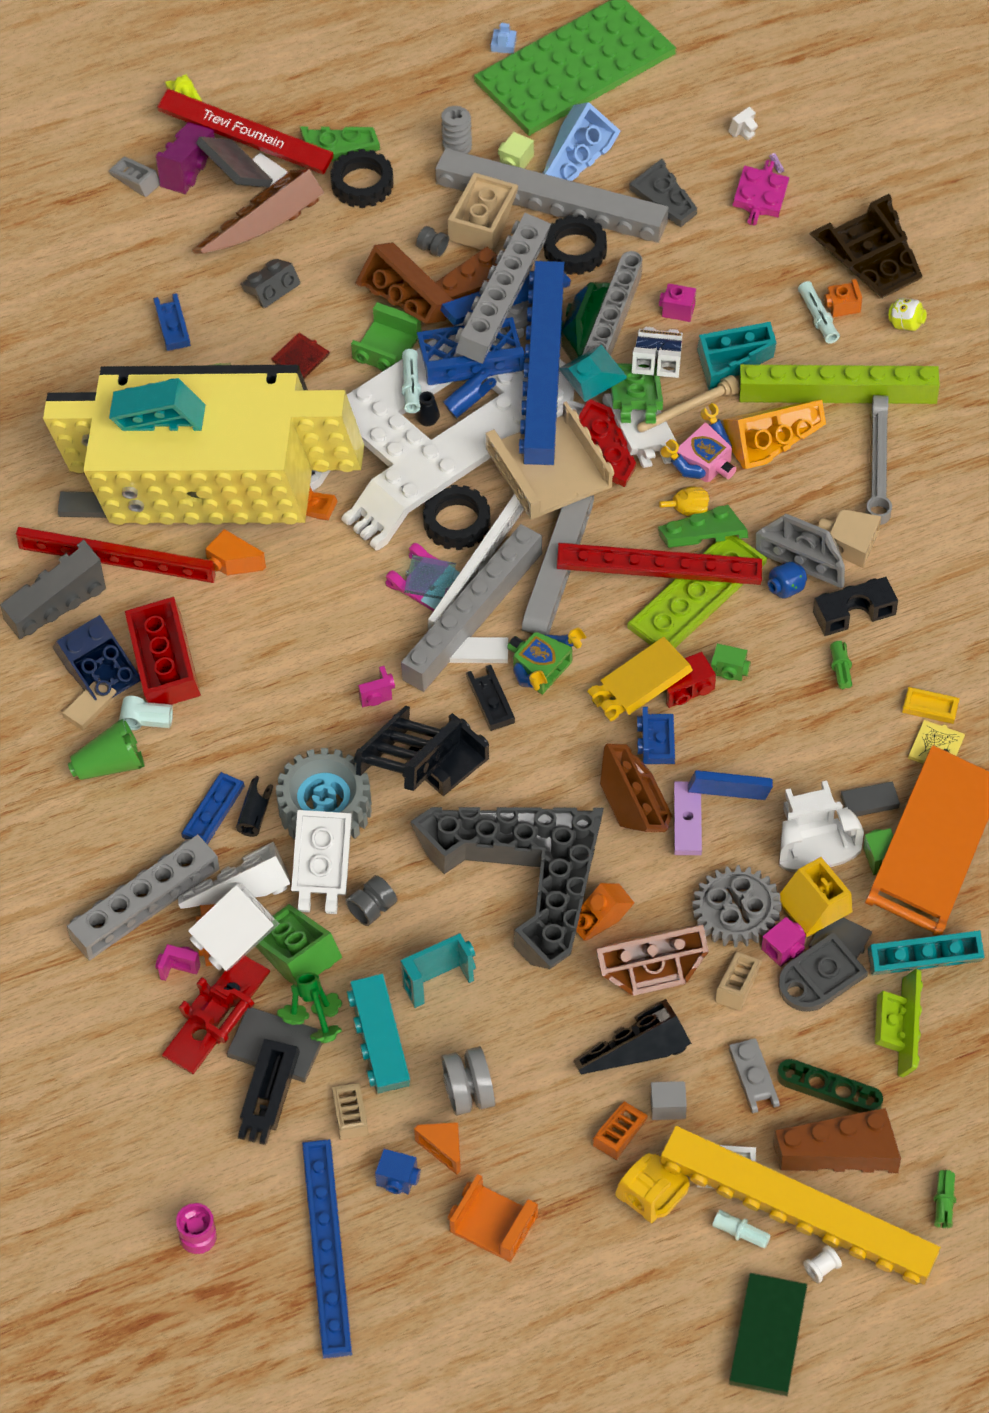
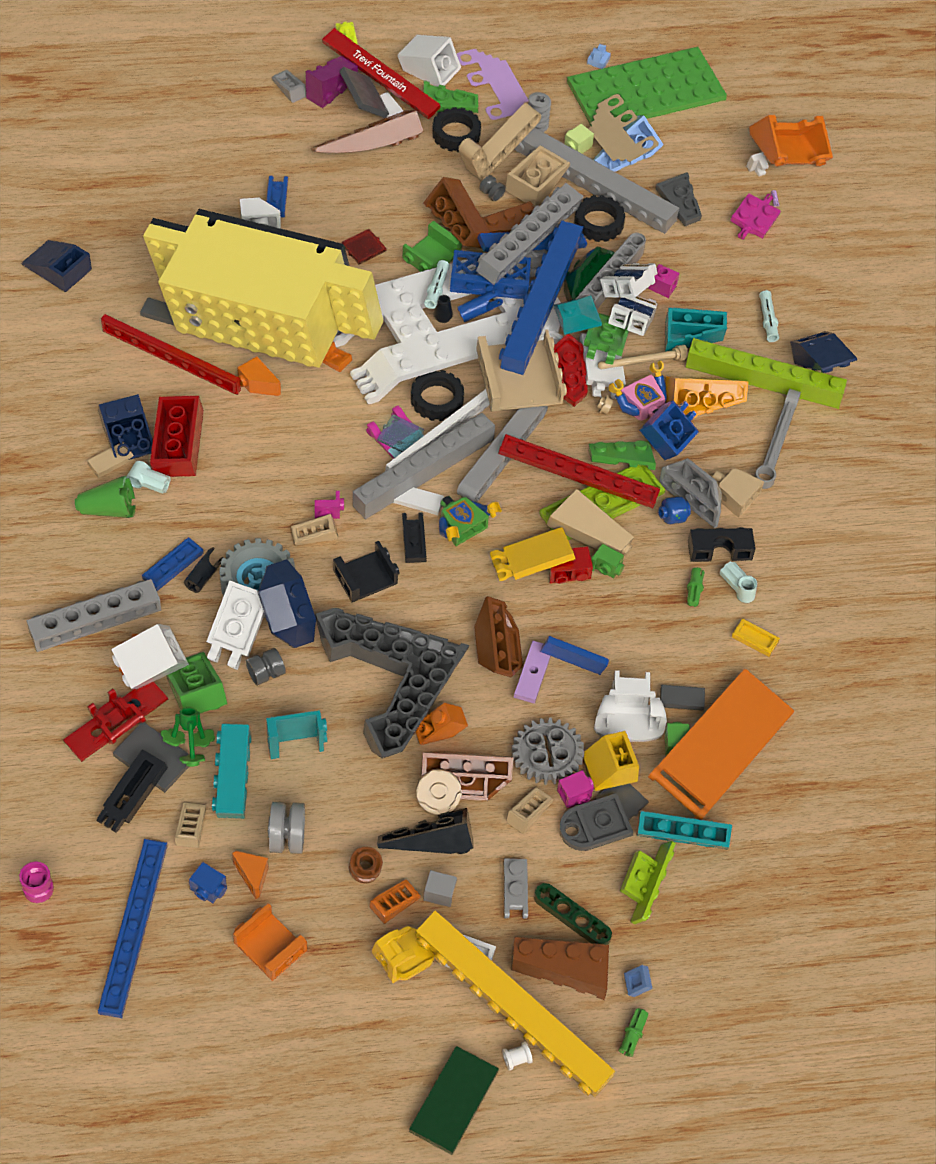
camera: 10 degrees right, 0 degrees up
(55, 592) = (114, 369): dark grey wedge -> none
(157, 404) = (227, 246): teal wedge -> none
(163, 350) = (260, 212): none -> white slope
(177, 958) = (106, 670): dark pink bracket -> none
(260, 873) = (186, 624): white wedge -> none
(271, 282) = (361, 187): dark grey bracket -> none
(298, 97) = (430, 59): none -> white slope
(370, 711) = (323, 535): none -> tan slope
(374, 819) = (287, 604): none -> dark blue wedge
(394, 100) = (501, 80): none -> lavender piece
(410, 209) = (485, 159): none -> tan beam
(421, 763) = (336, 571): black fence -> none
(558, 138) = (612, 136): none -> tan piece
(572, 1110) = (369, 855): none -> dark orange wheel
(628, 988) = (438, 791): none -> tan tile
(639, 312) = (629, 280): none -> white hips
(657, 737) = (531, 603): blue bracket -> none
(660, 474) = (605, 404): none -> tan plate
(689, 501) = (619, 430): yellow piece -> none
(695, 624) = (589, 524): none -> tan slope
(740, 1229) = (462, 1008): light aqua axle -> none
(750, 483) = (670, 429): none -> blue hinge
(777, 87) = (792, 142): none -> orange windscreen
(844, 299) = (791, 311): orange brick -> none
(873, 248) = (827, 279): dark brown wedge -> none
(896, 646) = (739, 582): none -> light aqua piece
(897, 340) = (821, 352): none -> dark blue slope
(907, 314) = (841, 330): neon yellow head -> none
(930, 1139) = (638, 981): none -> medium blue plate
(936, 735) = (753, 663): light yellow piece -> none

